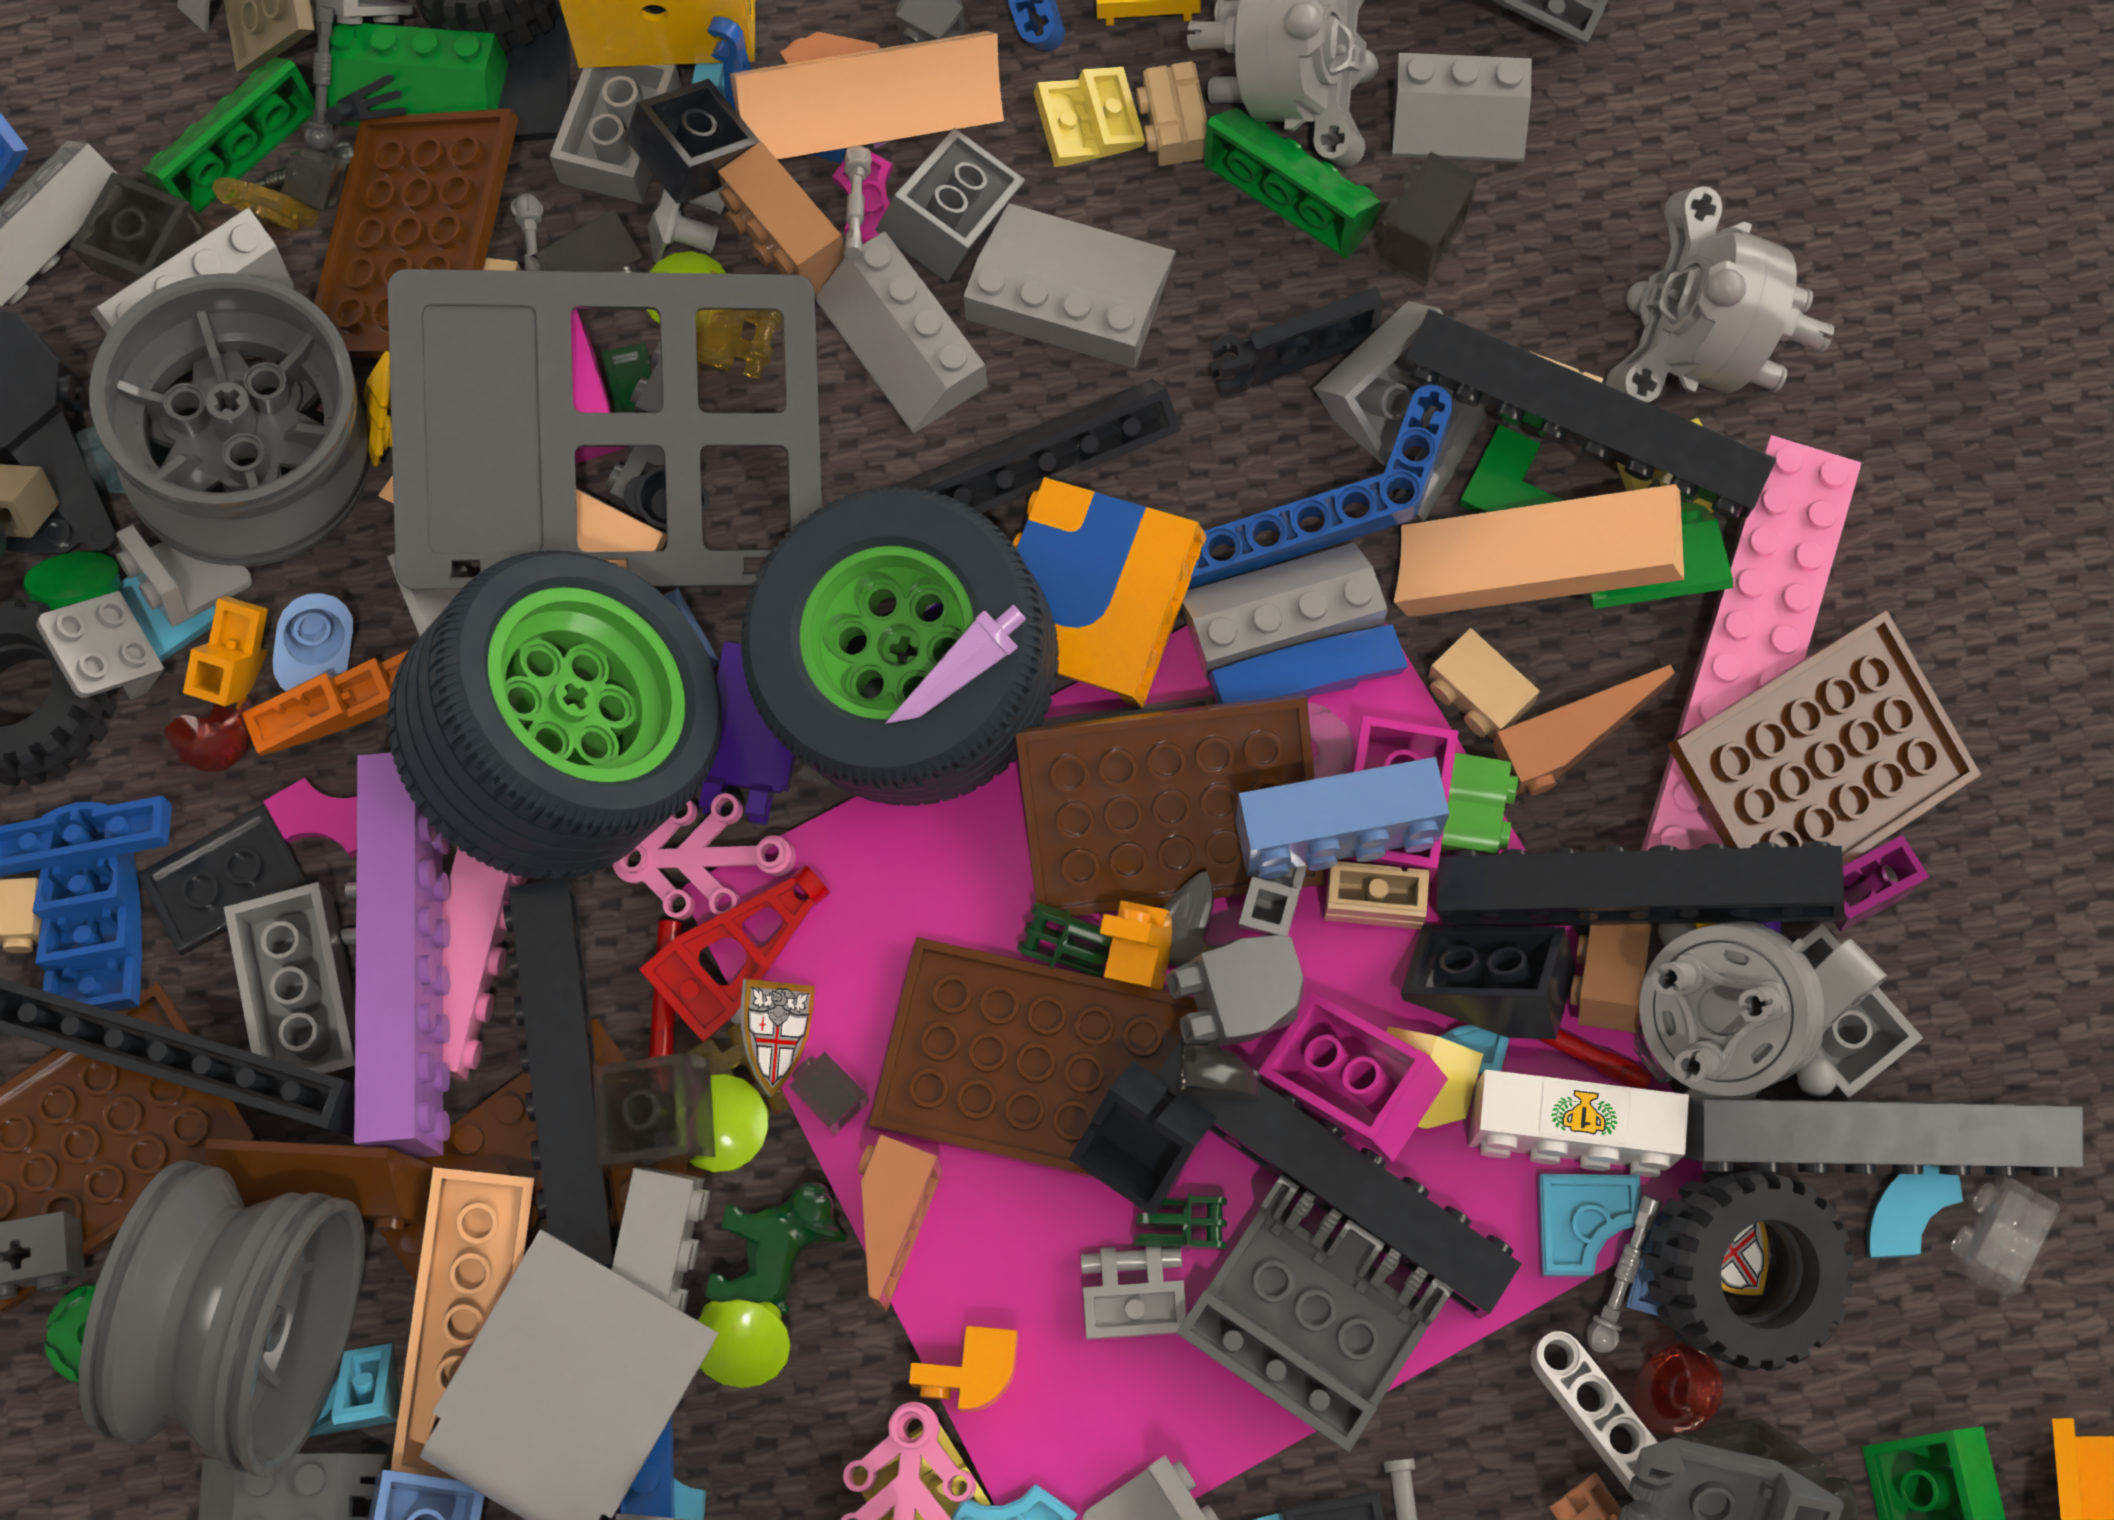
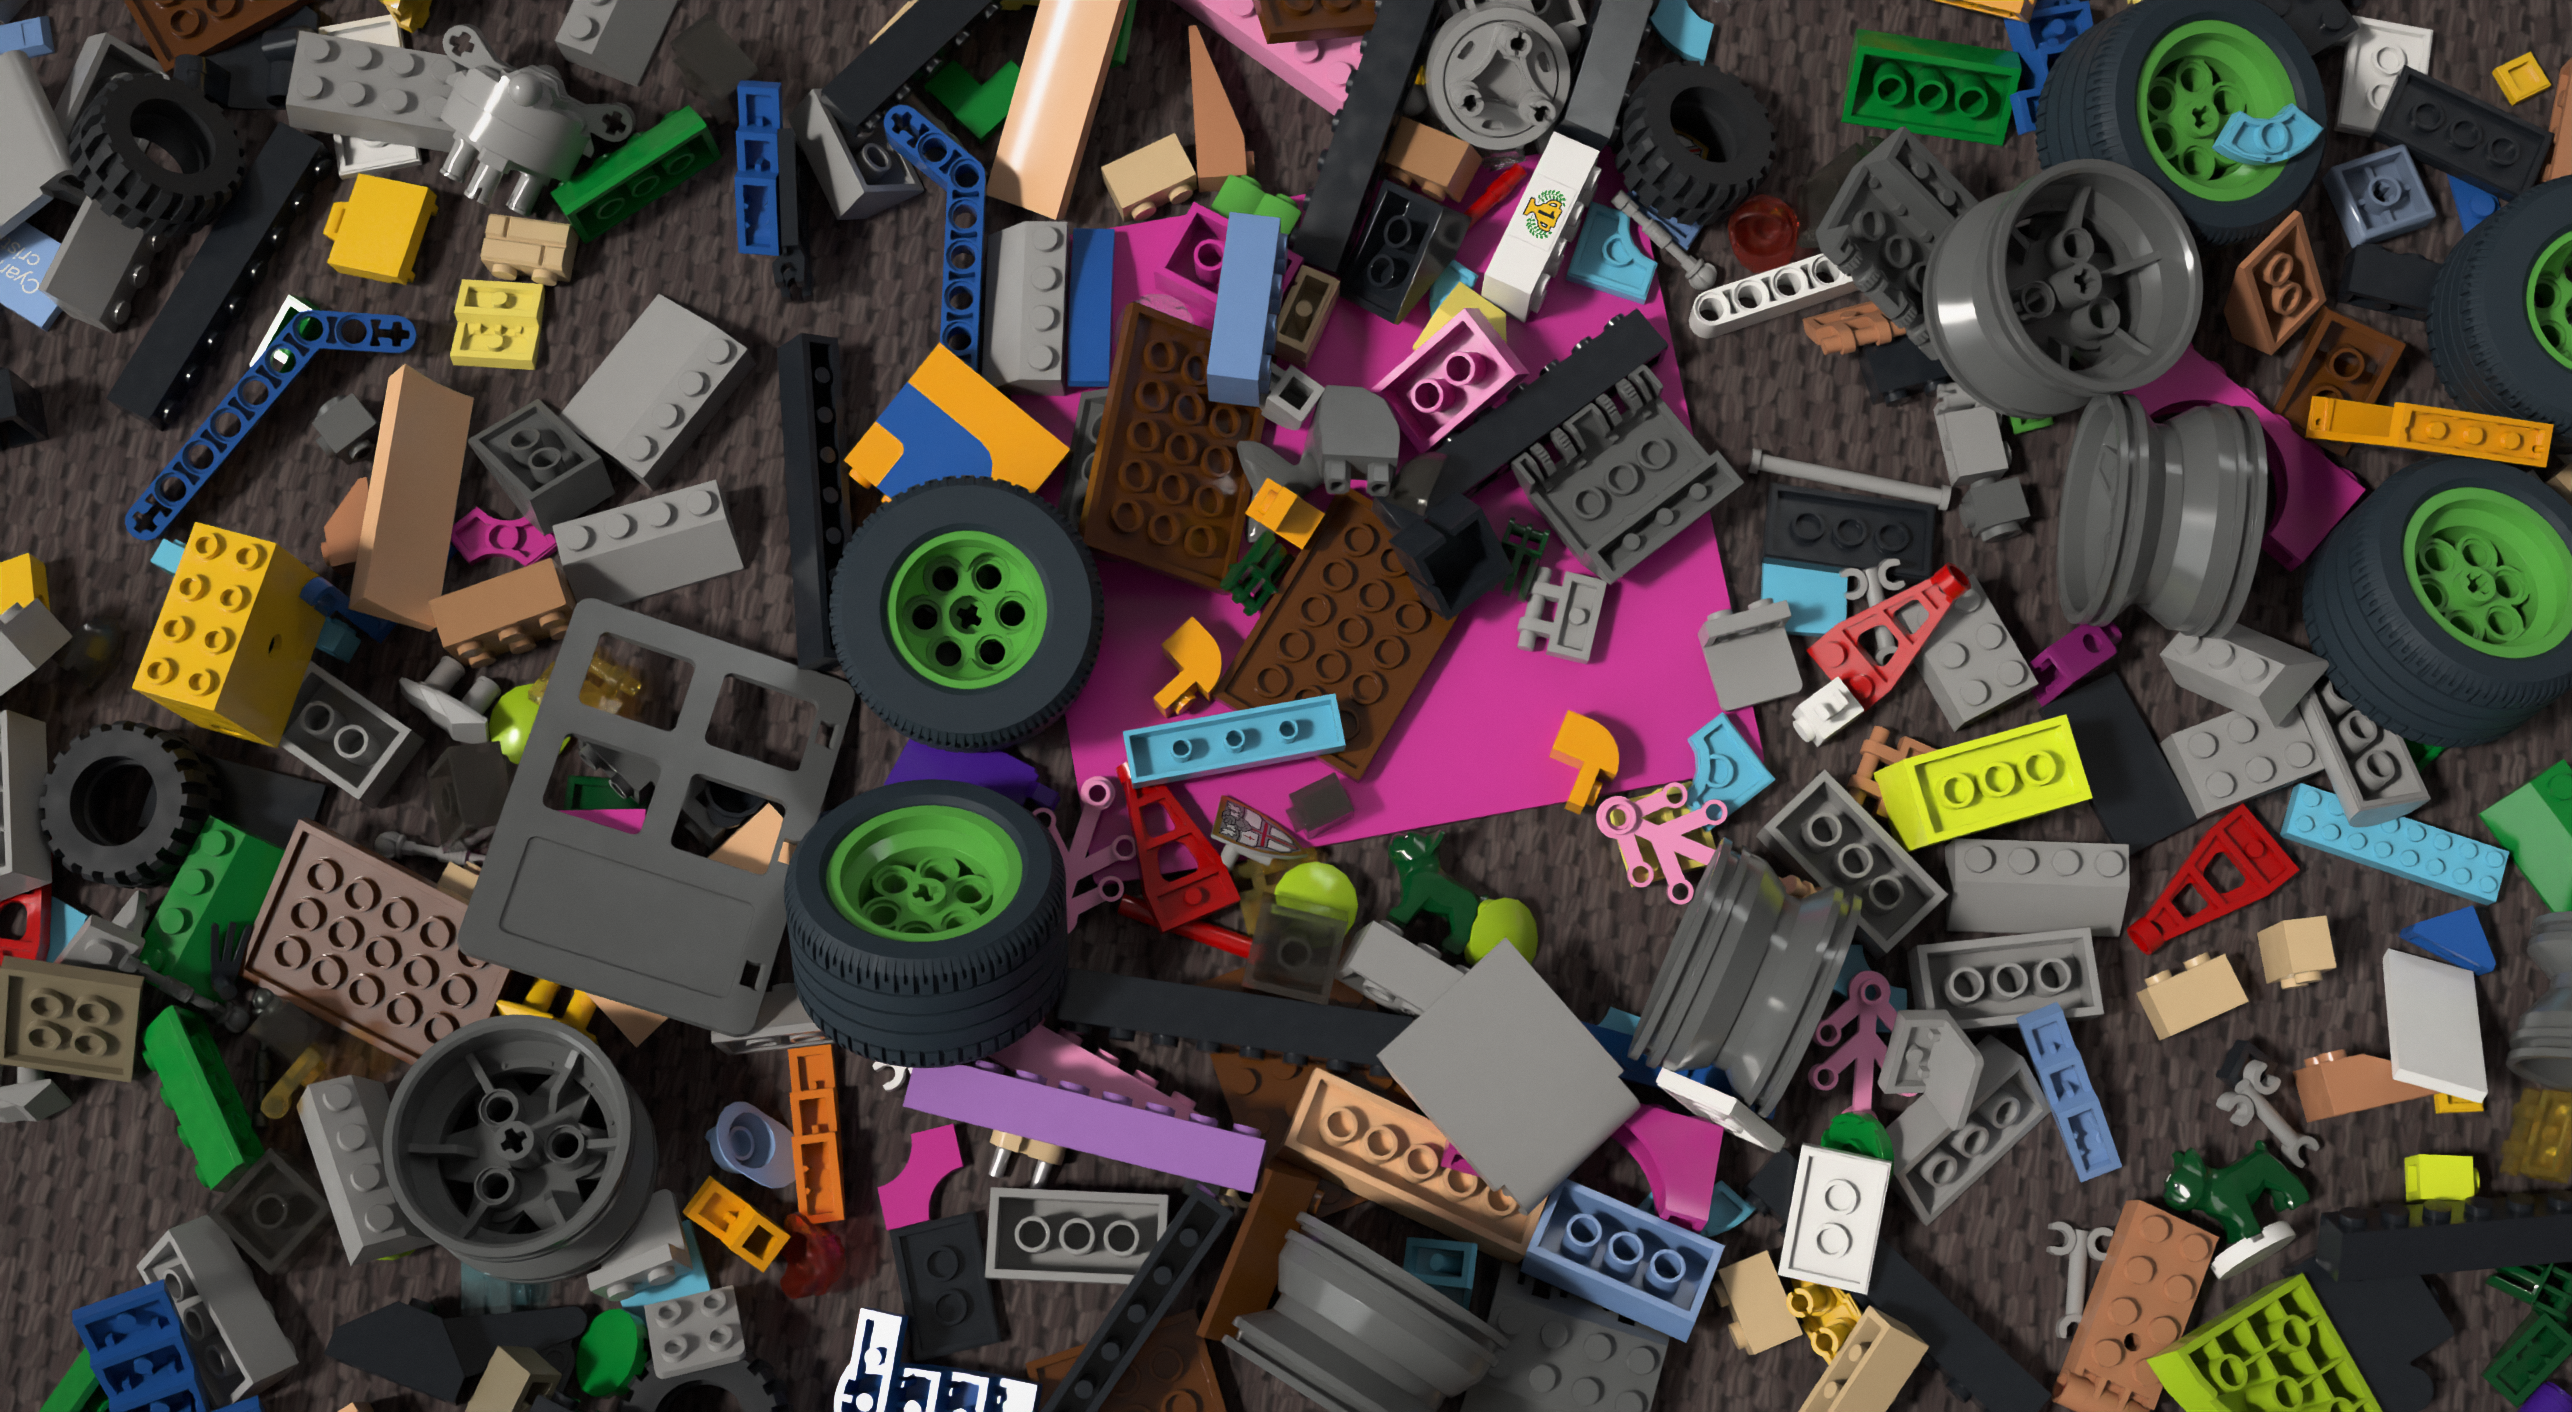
camera: 75 degrees left, 5 degrees up
(688, 138) = (400, 663): black brick -> none
(857, 168) = (474, 534): light grey piece -> none
(865, 974) = (1234, 741): none -> medium azure piece
(895, 1200) = (1439, 778): nougat slope -> none
(948, 913) = (1200, 668): none -> light orange brick
(970, 656) = (1018, 539): lavender bar -> none
(1386, 266) = (758, 167): none -> blue slope

